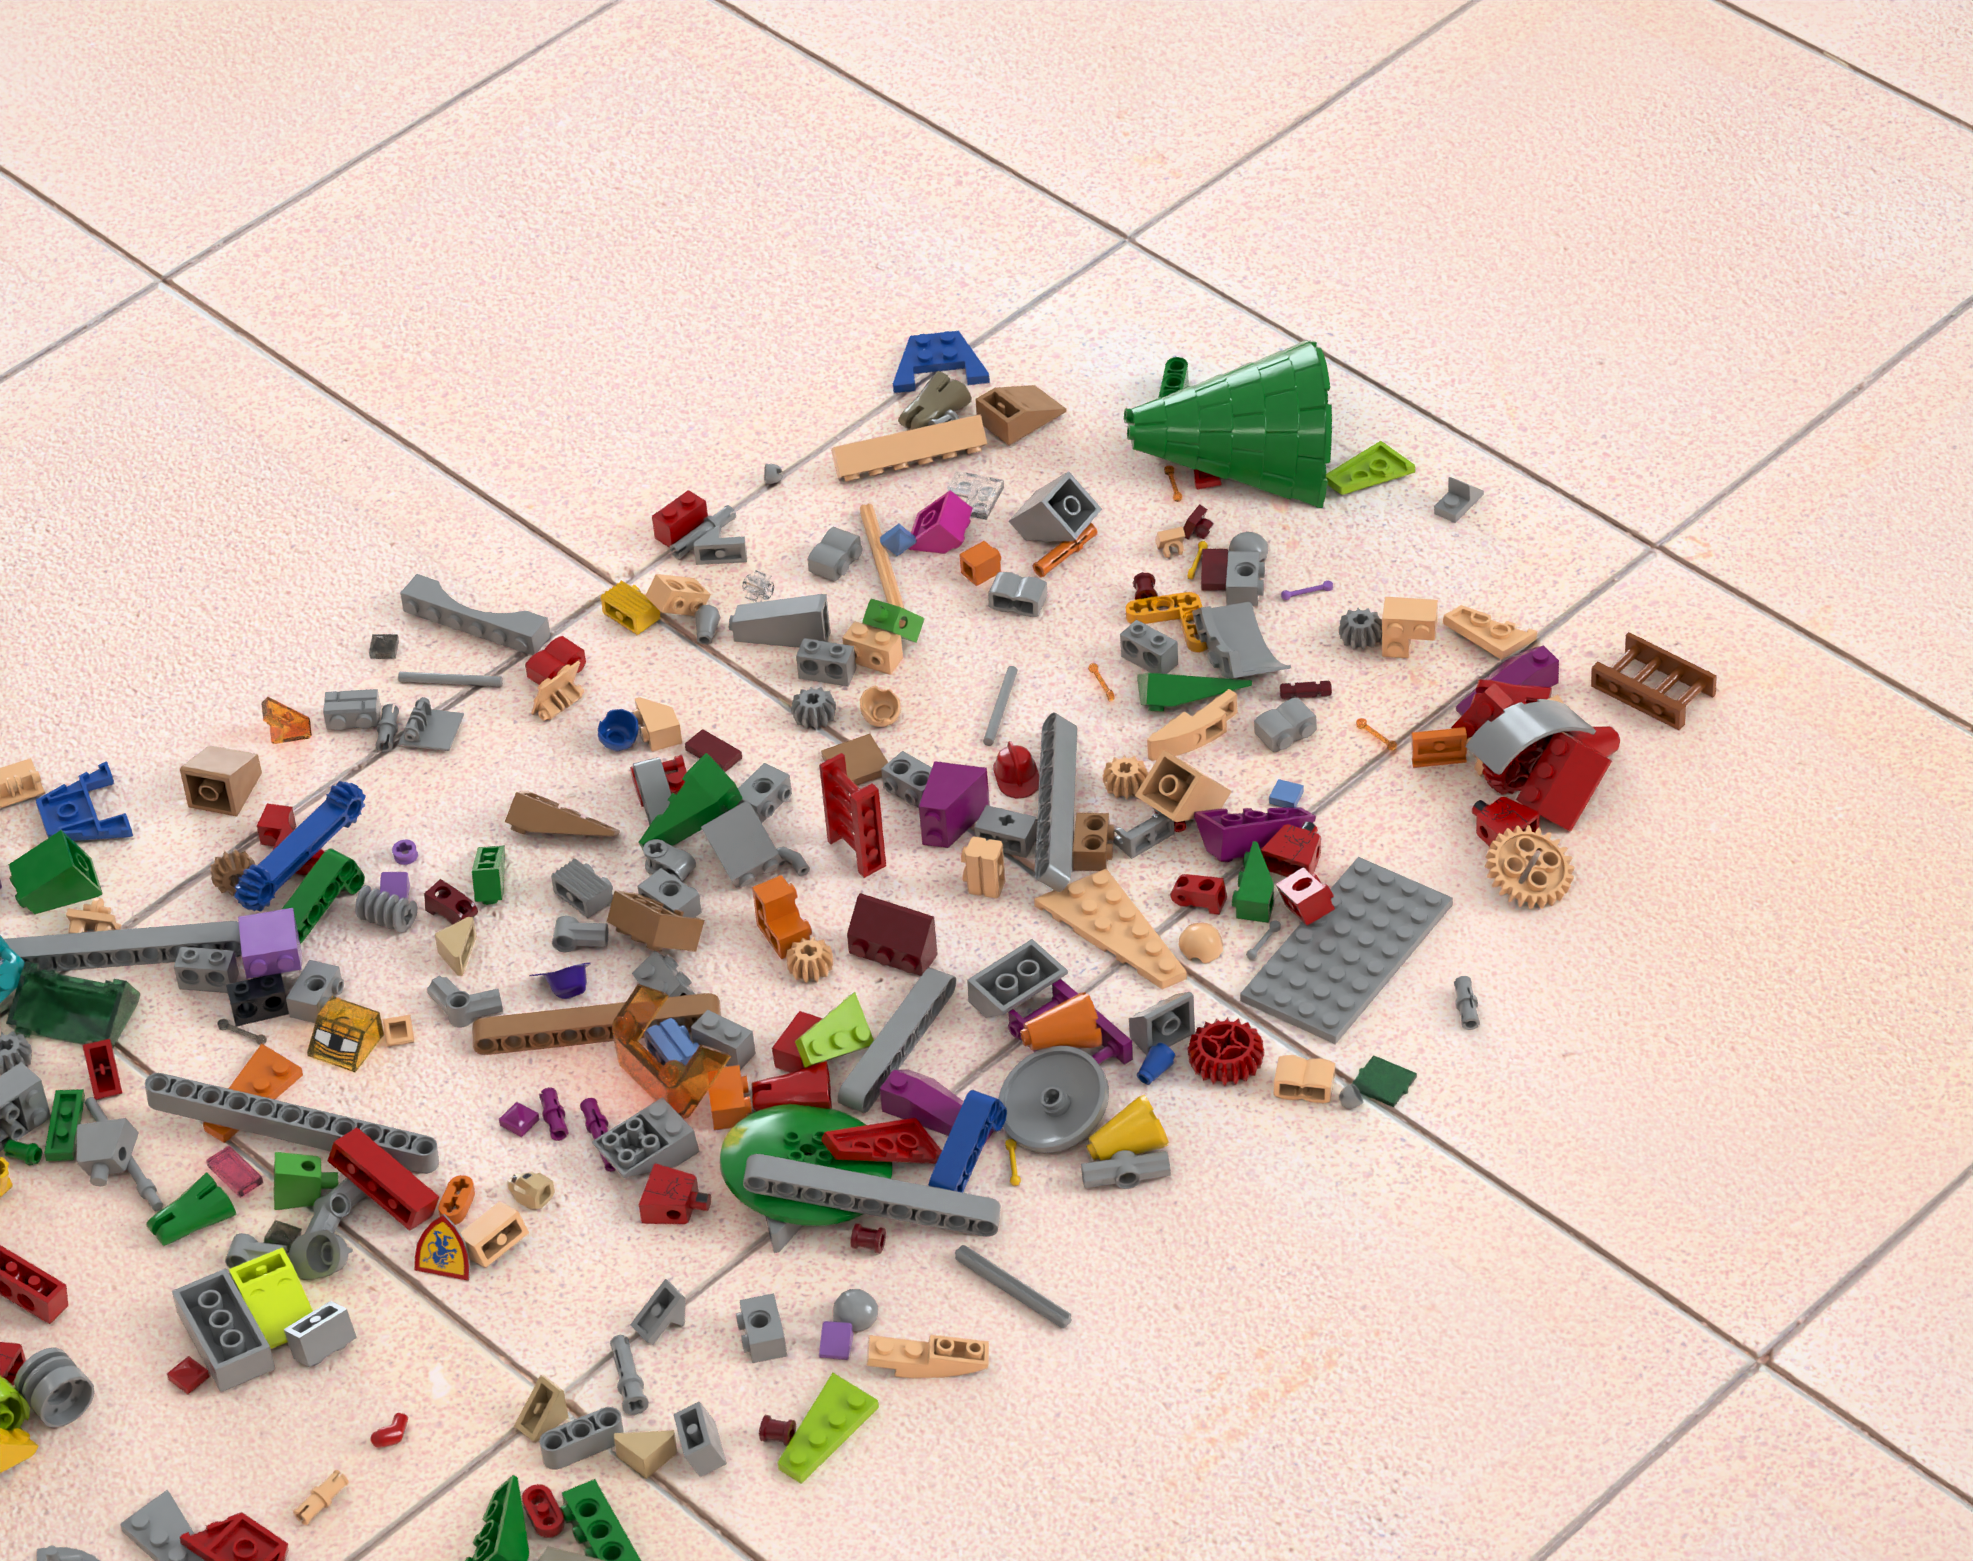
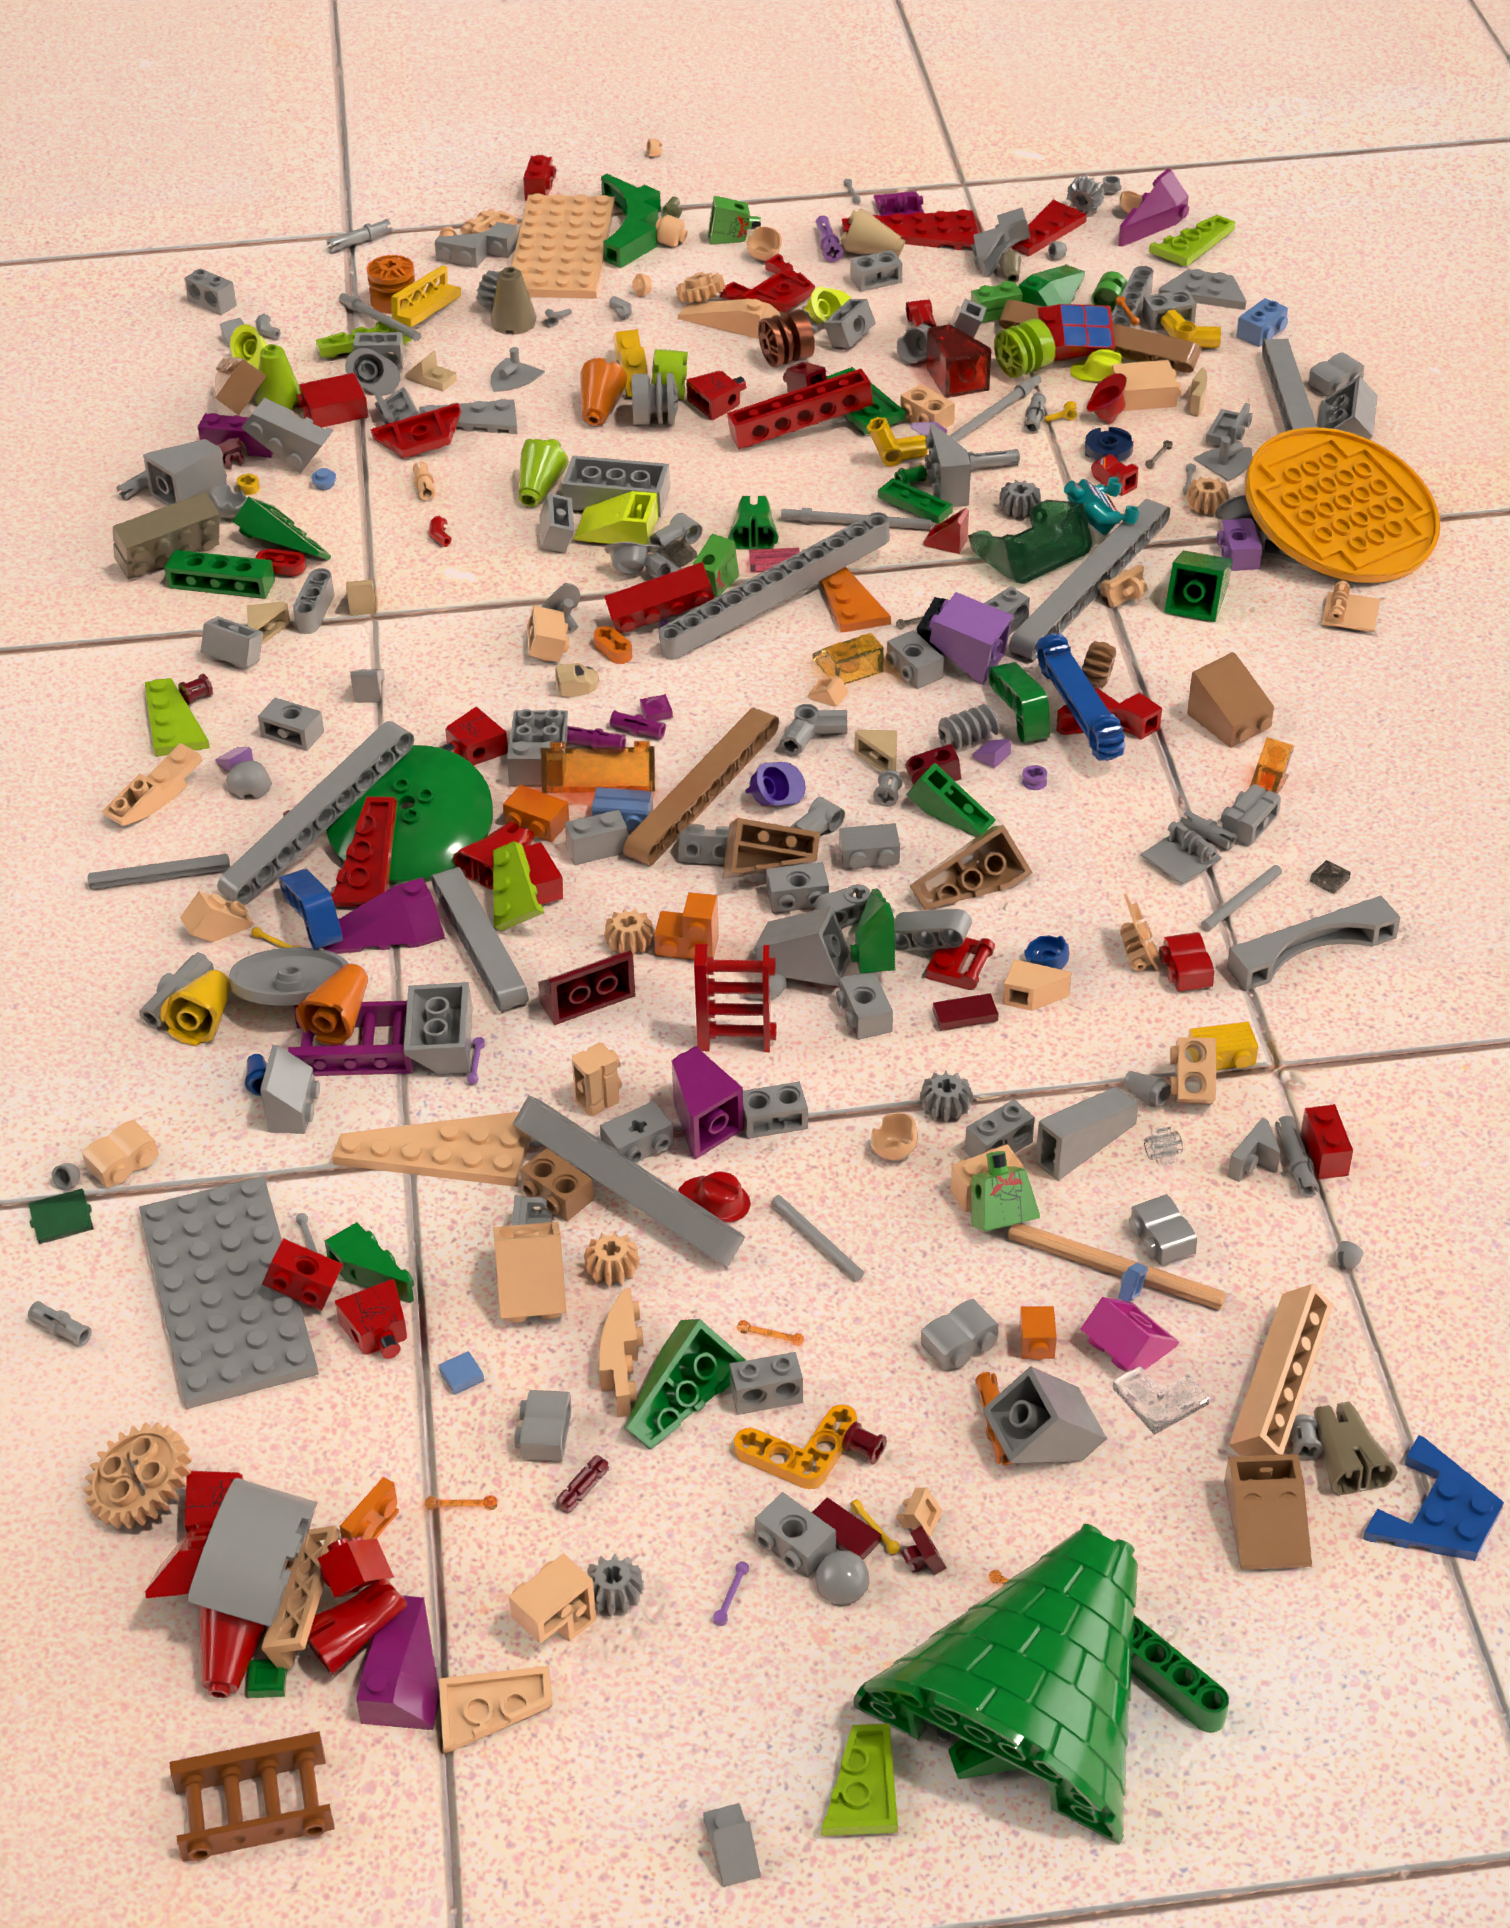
camera: 125 degrees right, 0 degrees up
(66, 1447) = (600, 389): none -> orange cone
(72, 810) = (1275, 622): blue wing -> none
(105, 1148) = (861, 498): light grey torso -> none
(245, 1402) = (540, 468): none -> lime cone
(500, 917) = (892, 789): none -> light grey bush
(629, 1384) = (331, 644): light grey pin -> none
(861, 757) = (848, 1095): medium nougat tile -> none
(1032, 1200) = (215, 918): none -> light nougat slope
(1200, 892) = (407, 1219): red leg -> none
(1201, 942) = (354, 1189): light nougat hair -> none
(1226, 1051) = (212, 1123): red gear -> none
(1232, 834) = (445, 1299): magenta wedge -> none
(1235, 640) = (687, 1456): light grey panel -> none

